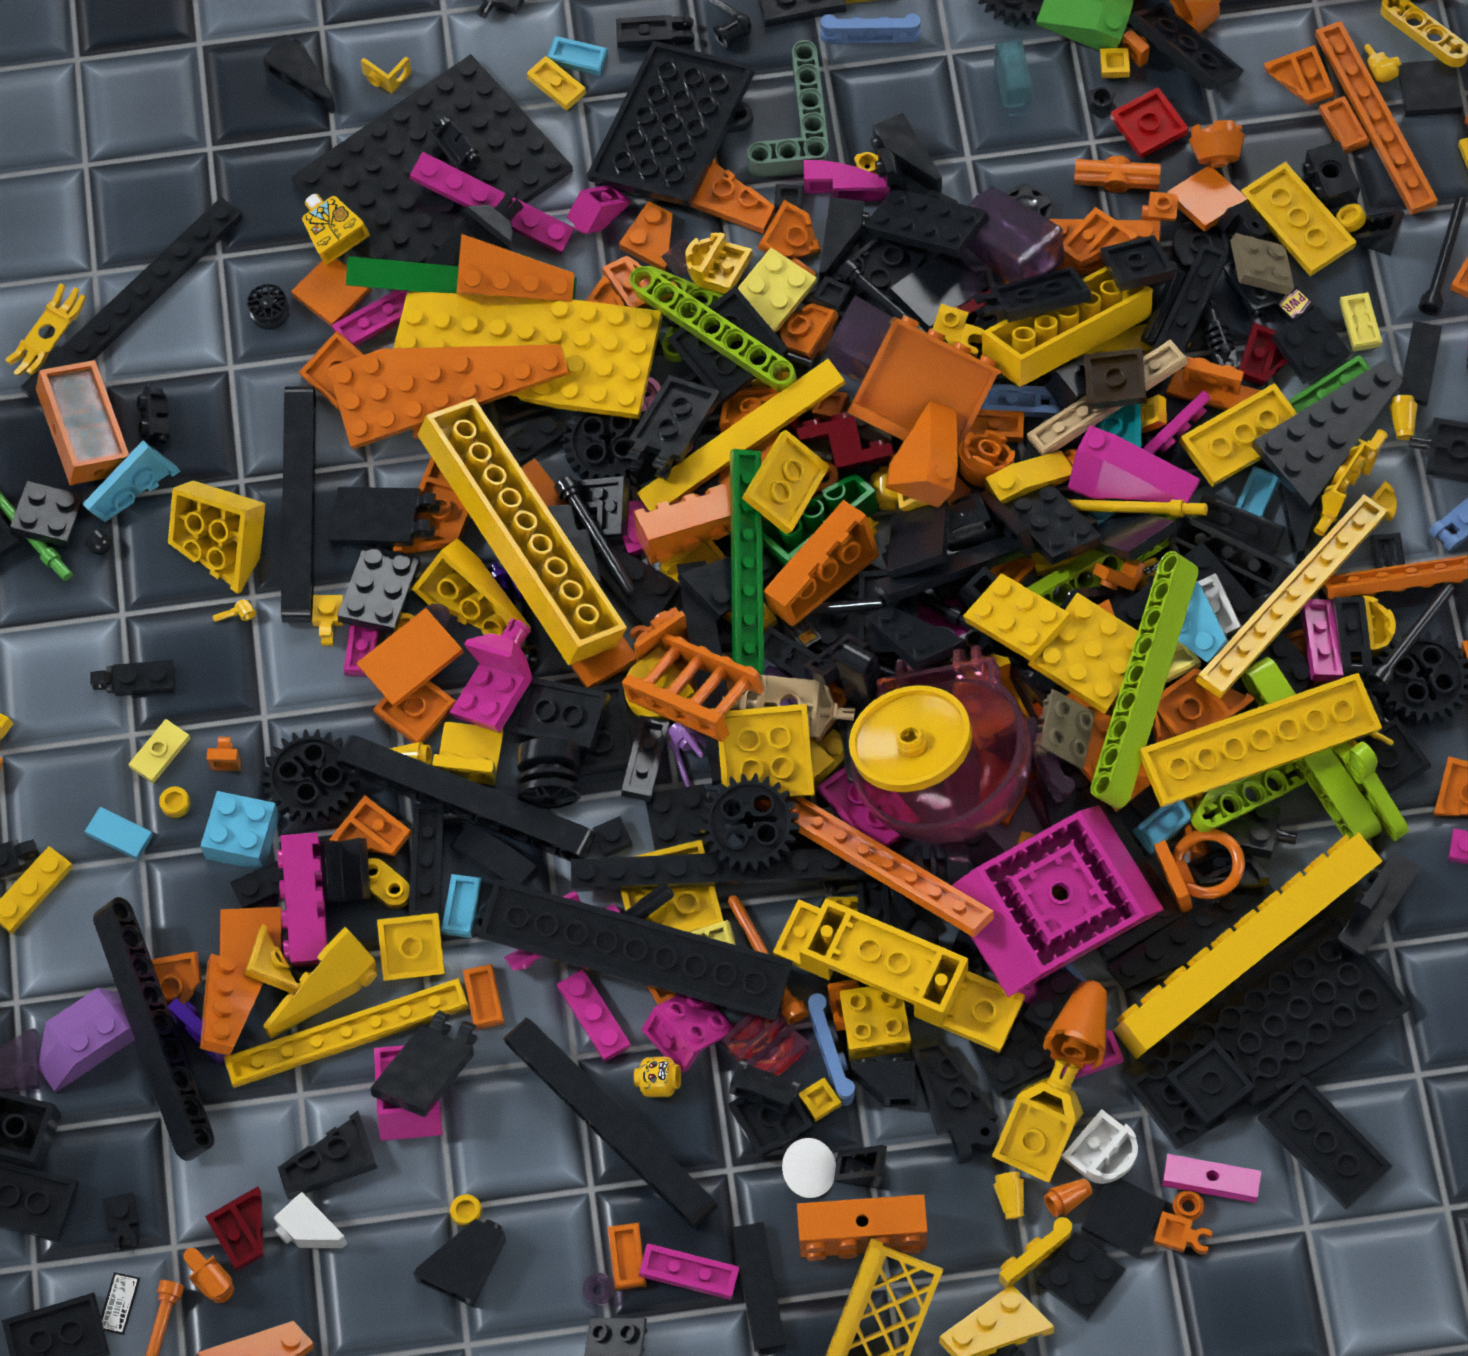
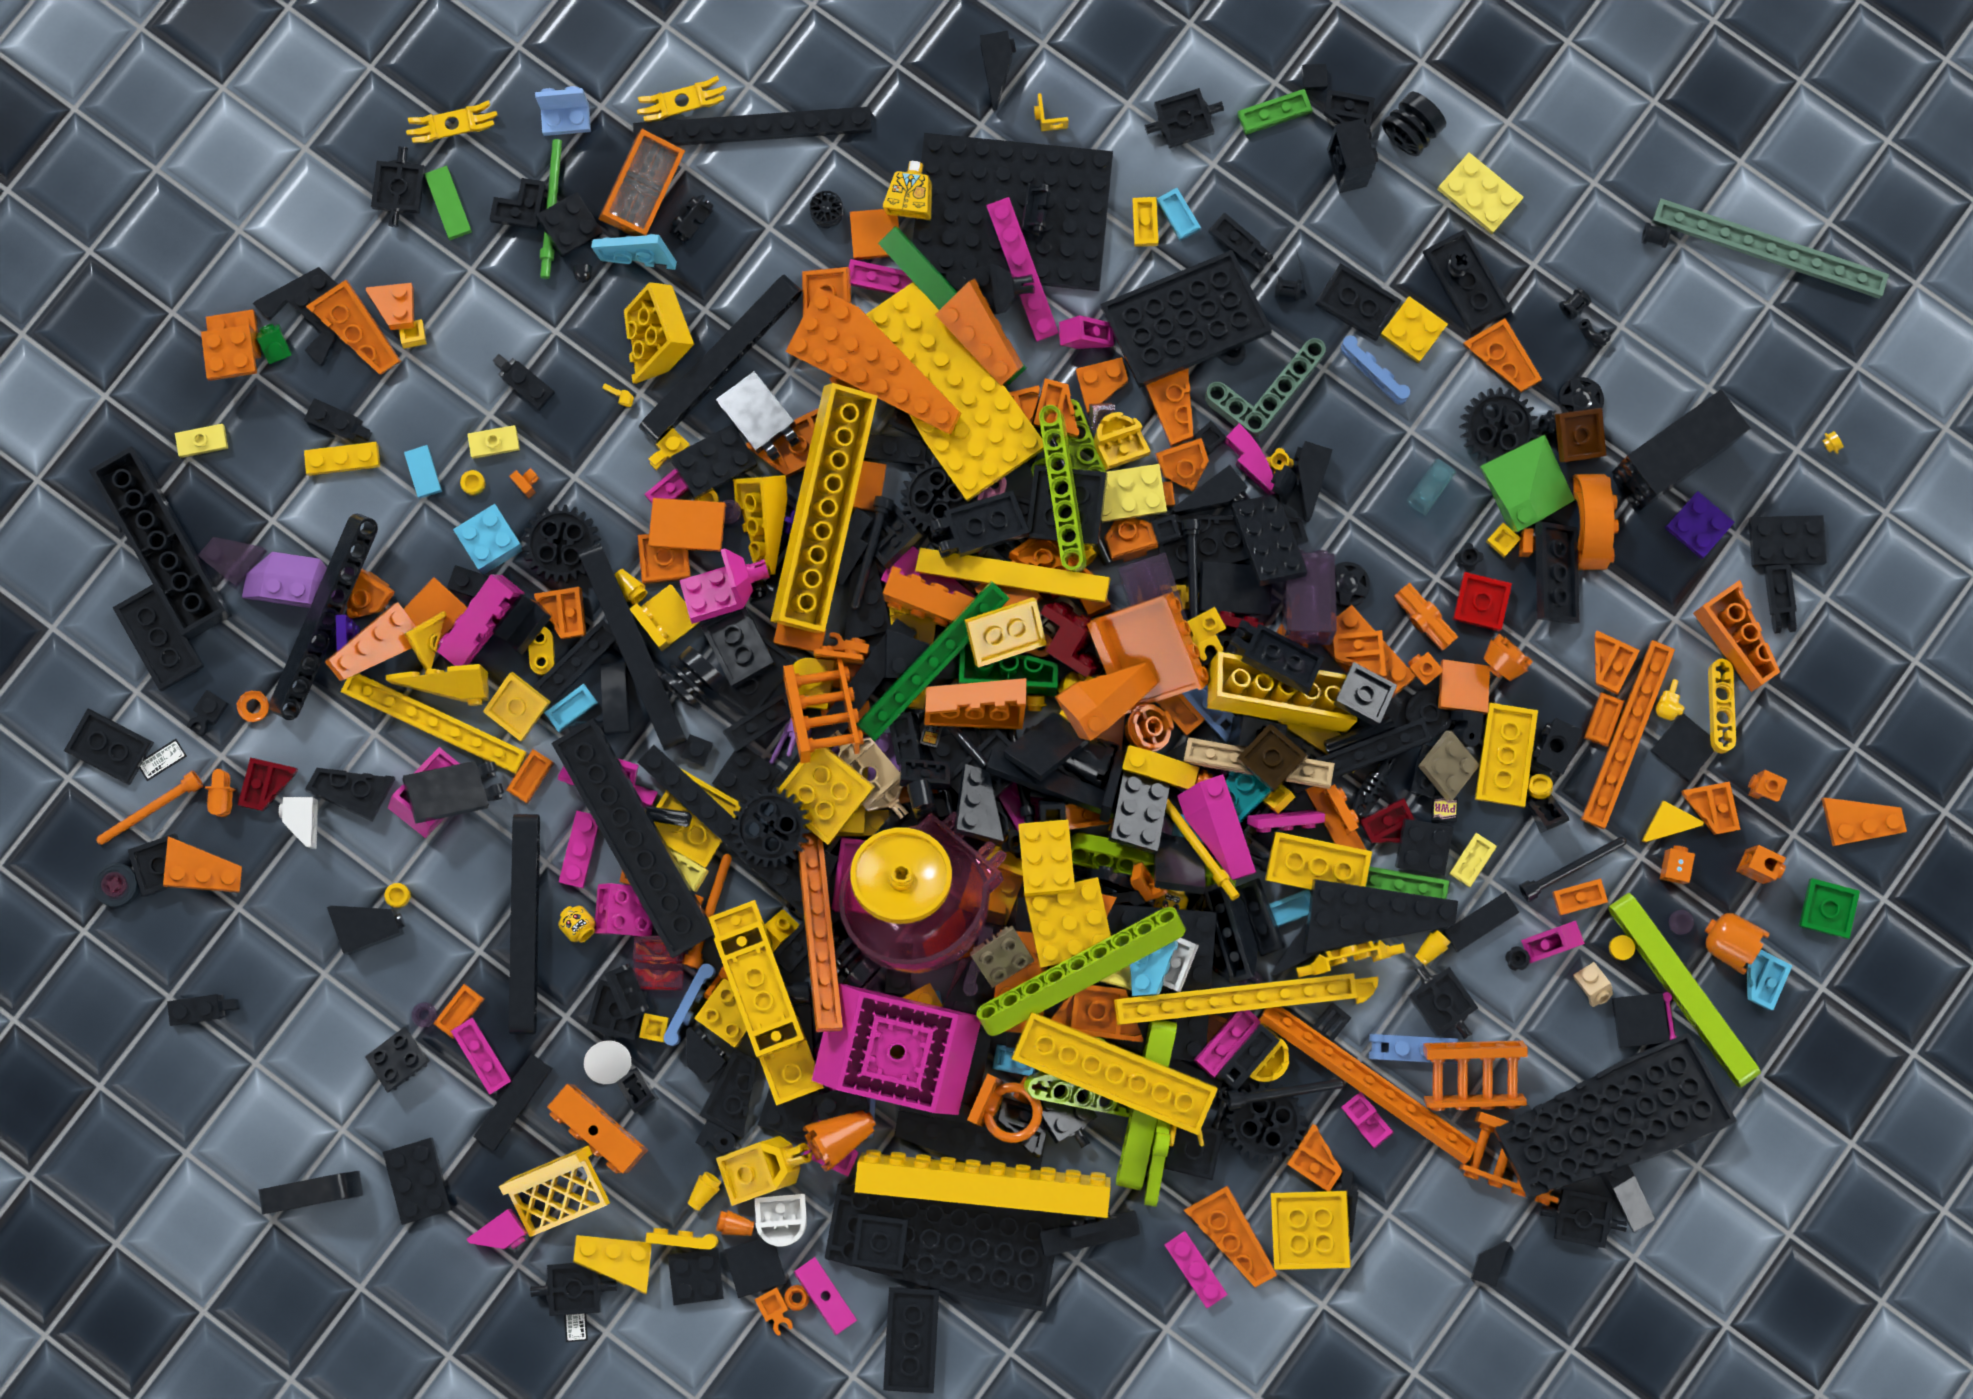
camera: 40 degrees right, 15 degrees up
(166, 1160) = (242, 706): none -> orange piece

